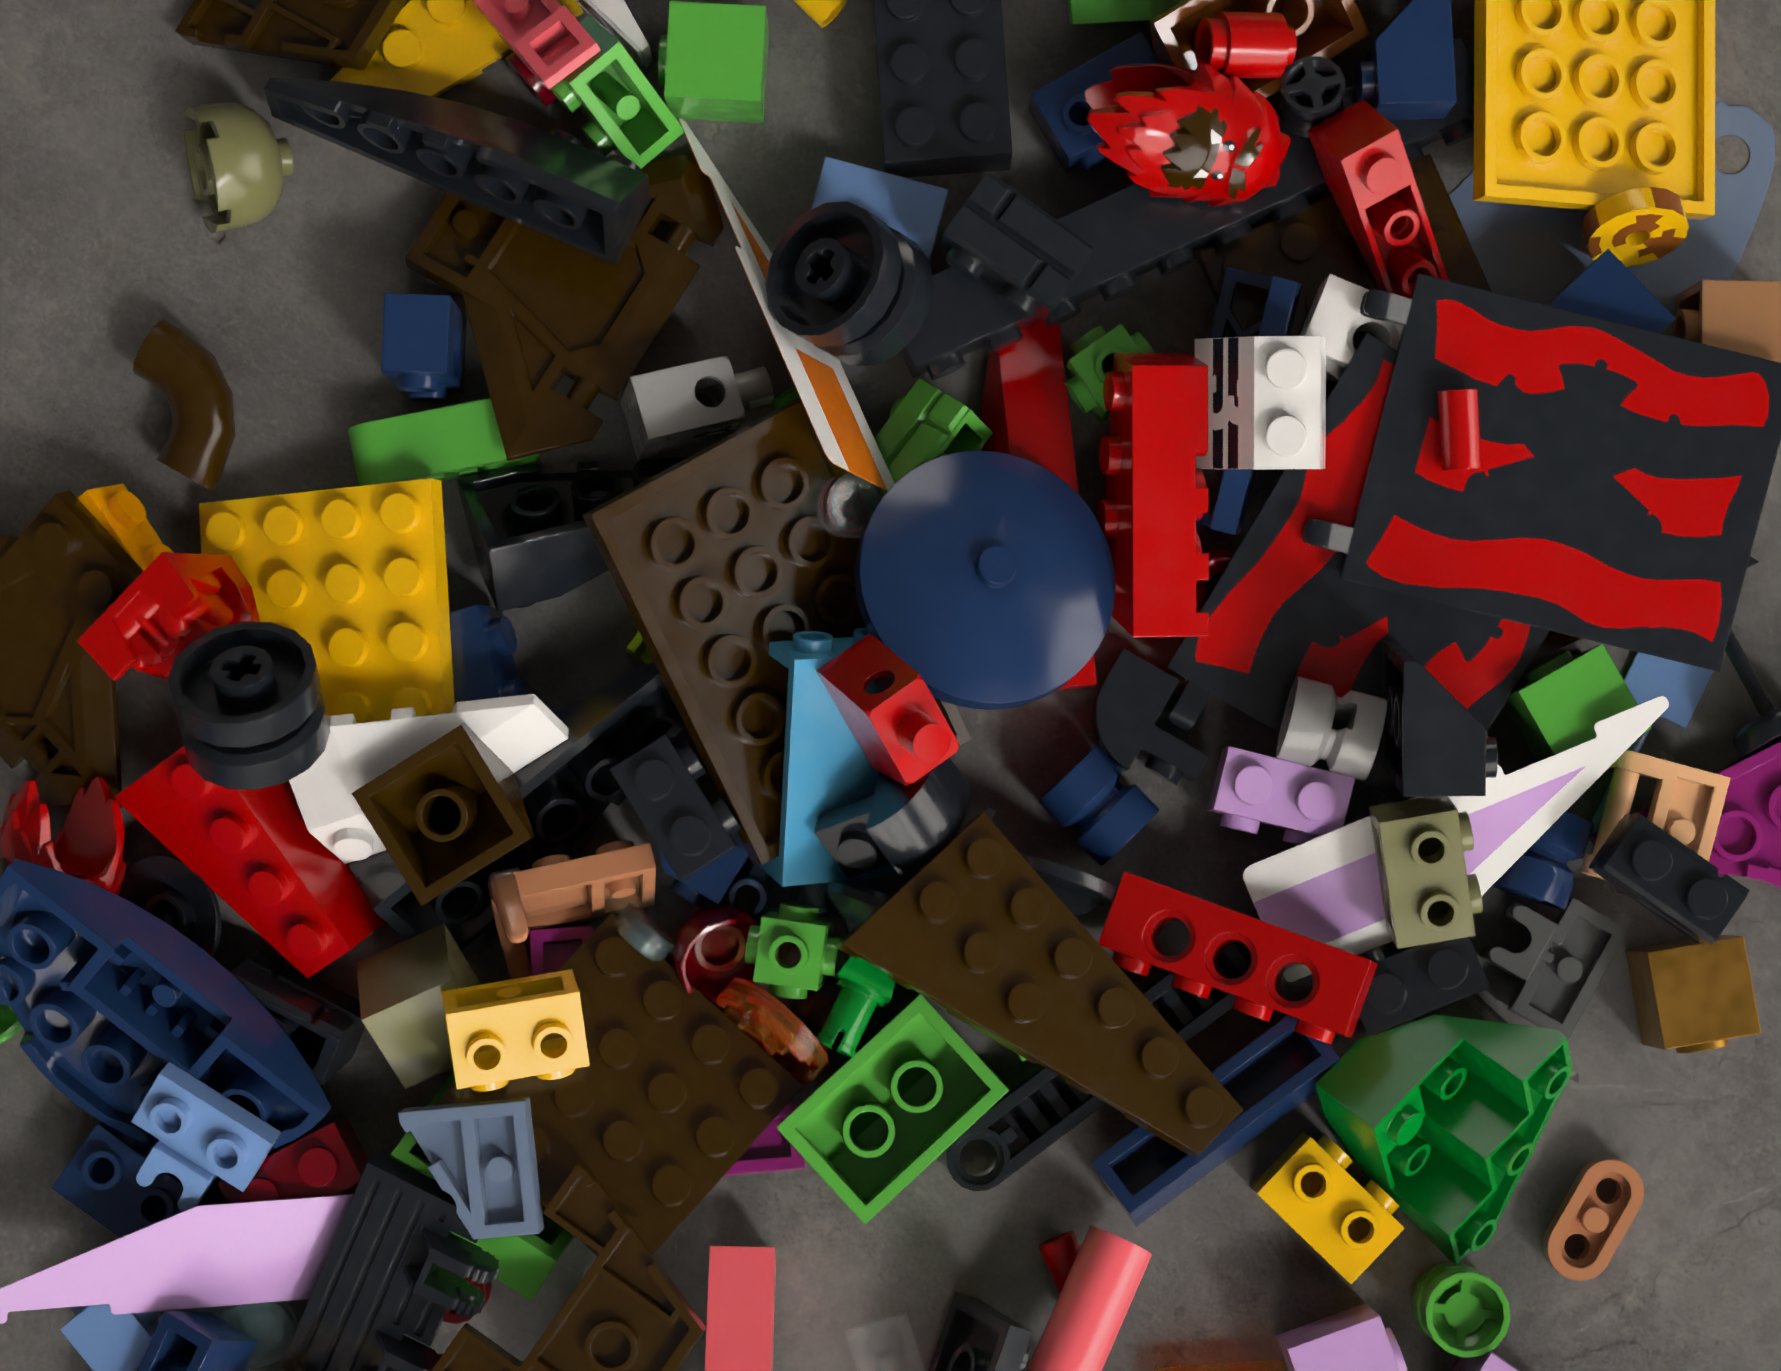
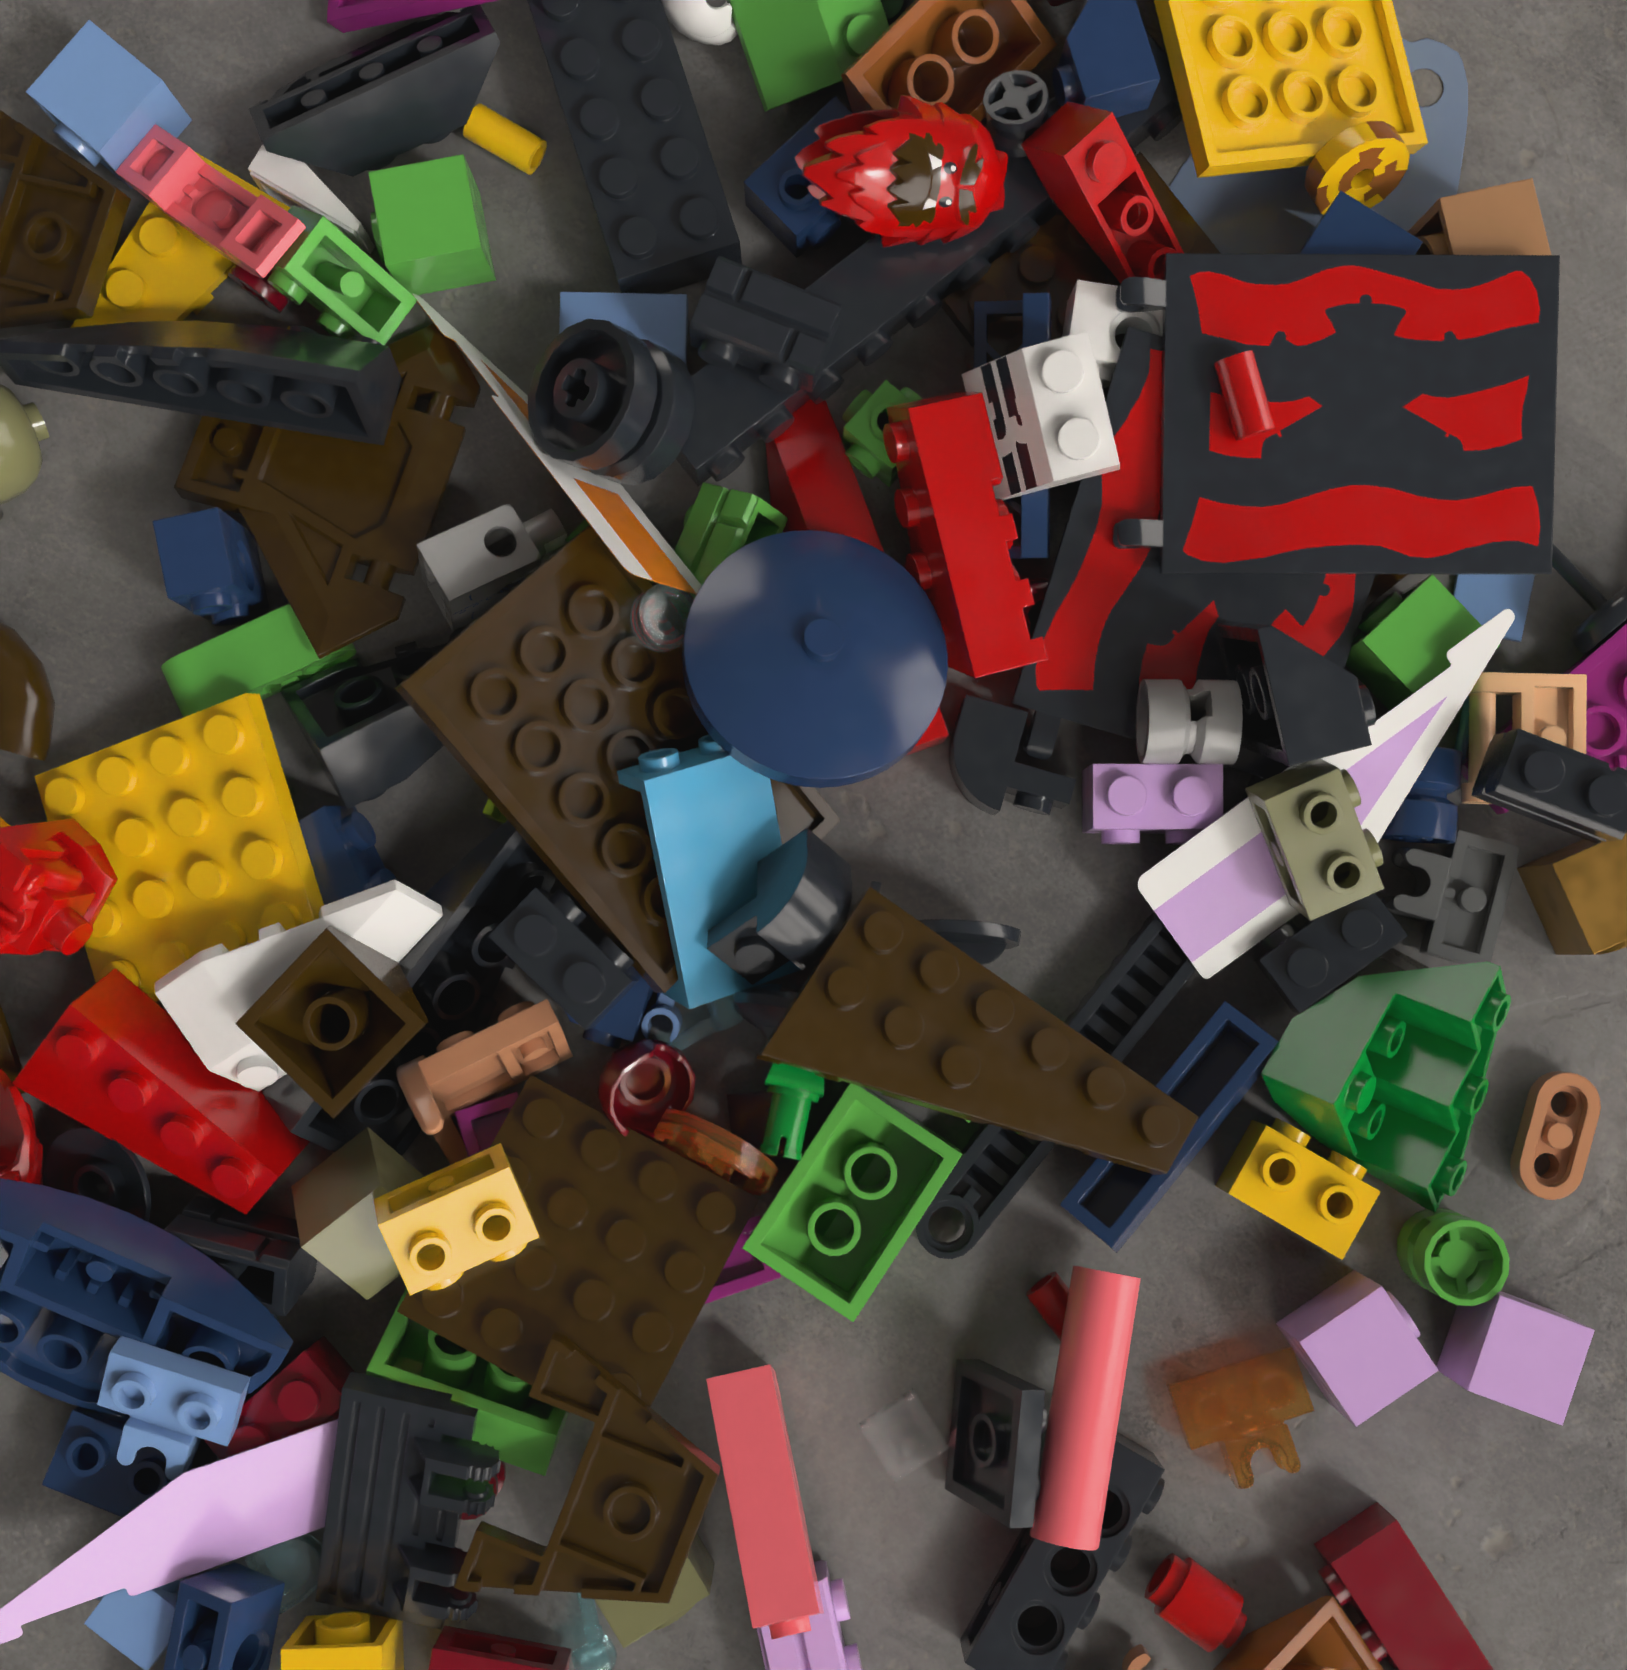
camera: 15 degrees left, 0 degrees up
(249, 705) = (108, 961): black wheel -> none
(484, 1161) = (457, 1360): sand blue wing -> none
(644, 932) = (567, 1086): clear light blue tile -> none
(810, 933) = (730, 1050): bright green brick -> none
(897, 728) = (761, 822): red torso -> none
(1099, 805) = (980, 853): dark blue wheel -> none
(1146, 907) = (1051, 939): red brick -> none
(1246, 44) = (942, 70): red brick -> none

